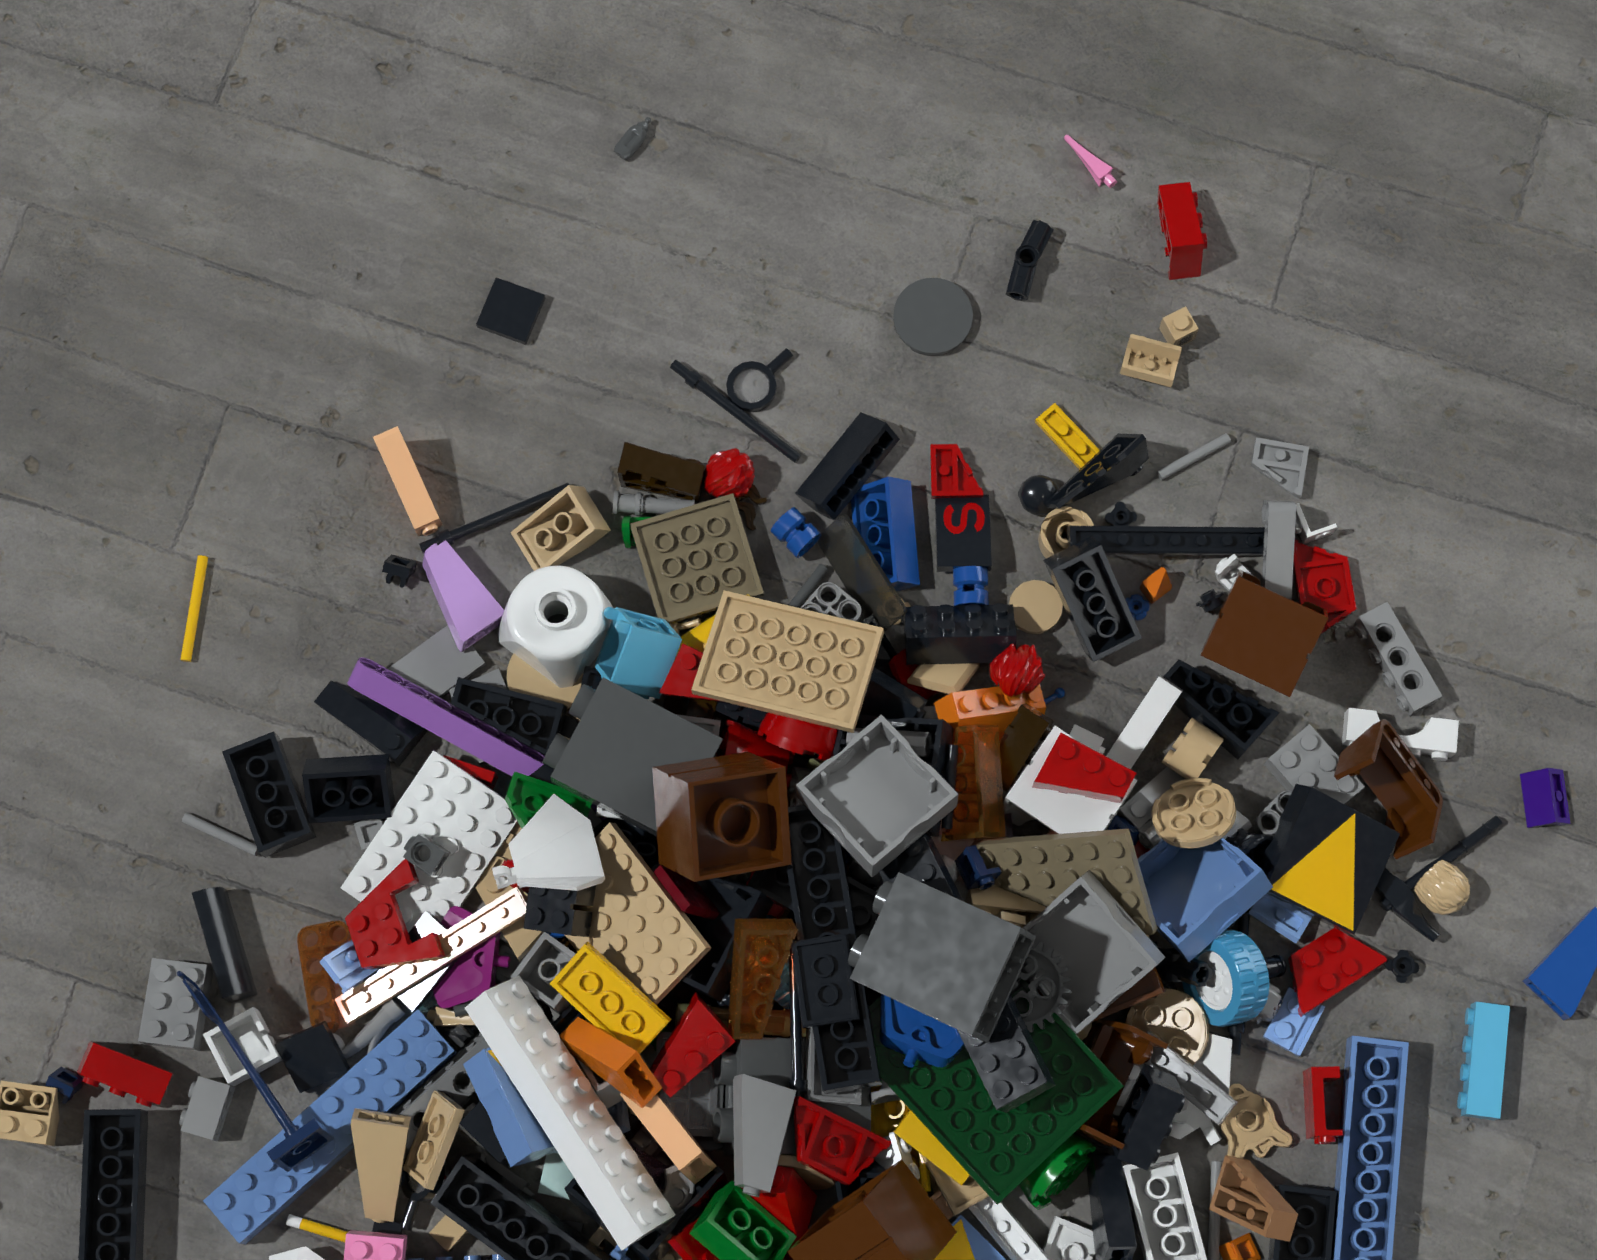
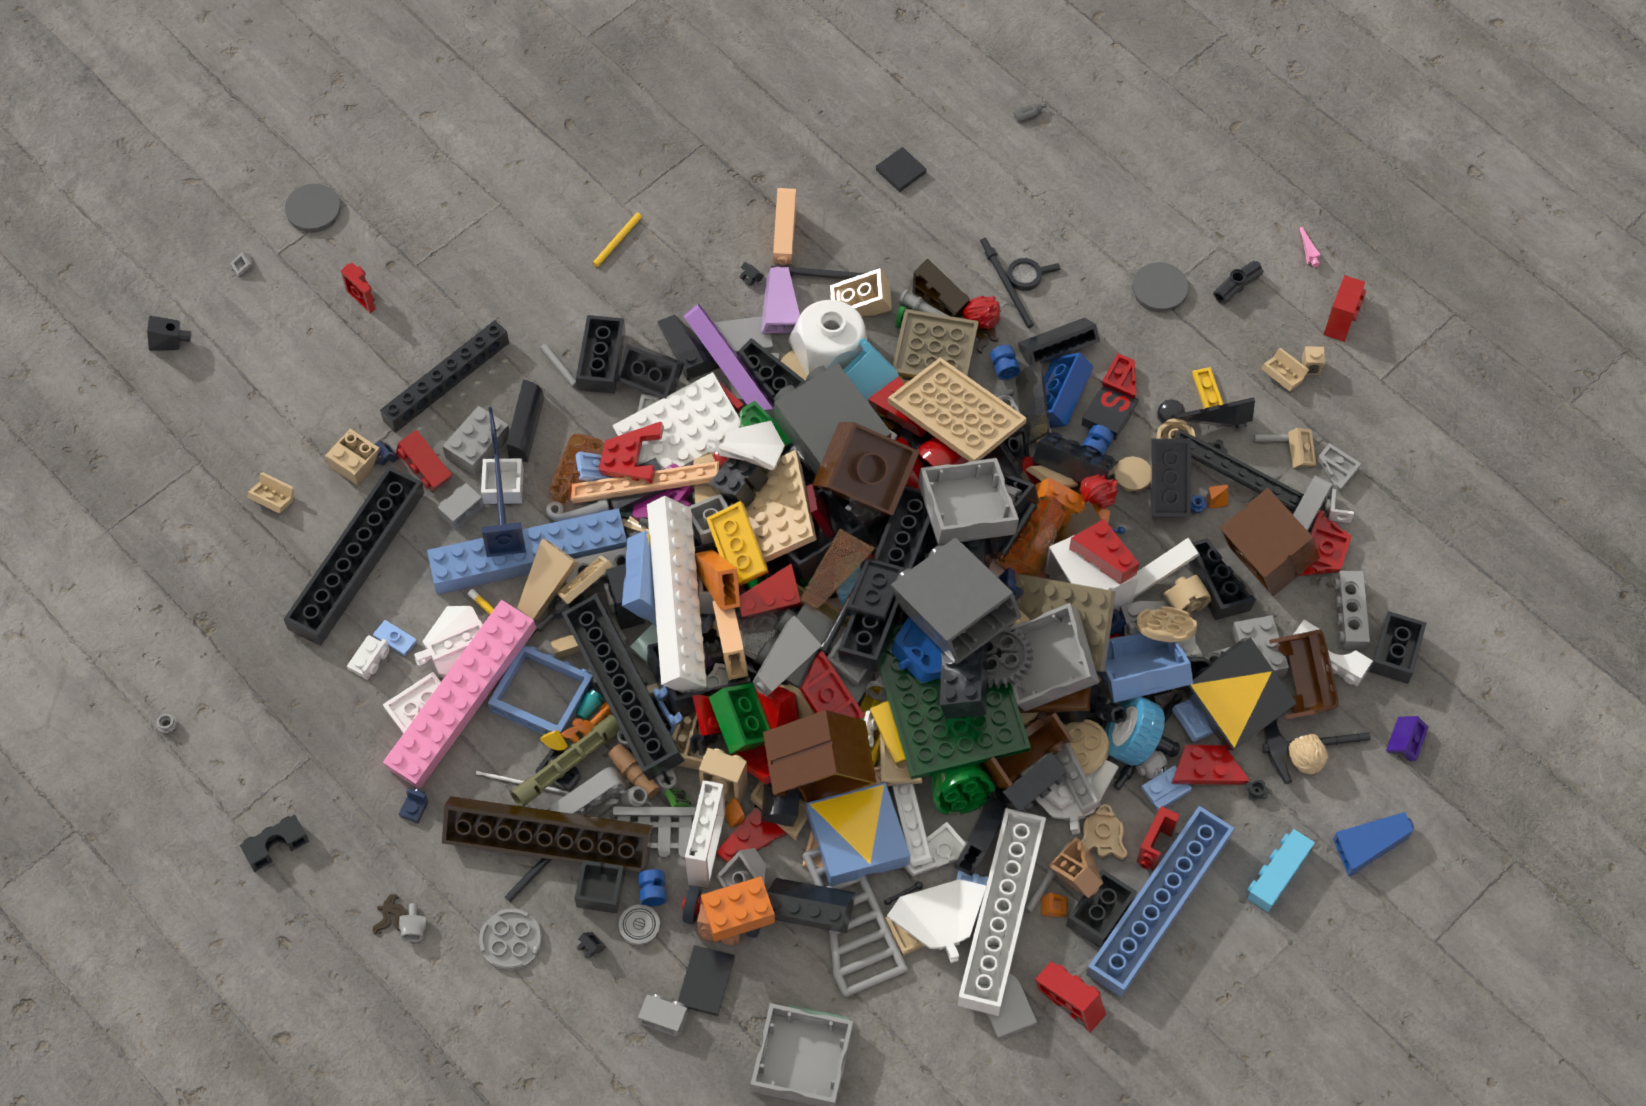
camera: 25 degrees right, 15 degrees down
(80, 932) = (444, 376): none -> black brick
(312, 1056) = (539, 506): black tile -> none
(437, 856) = (677, 431): dark grey brick -> none
(1225, 461) = (1302, 448): none -> tan slope
(1478, 683) = (1398, 647): none -> black brick

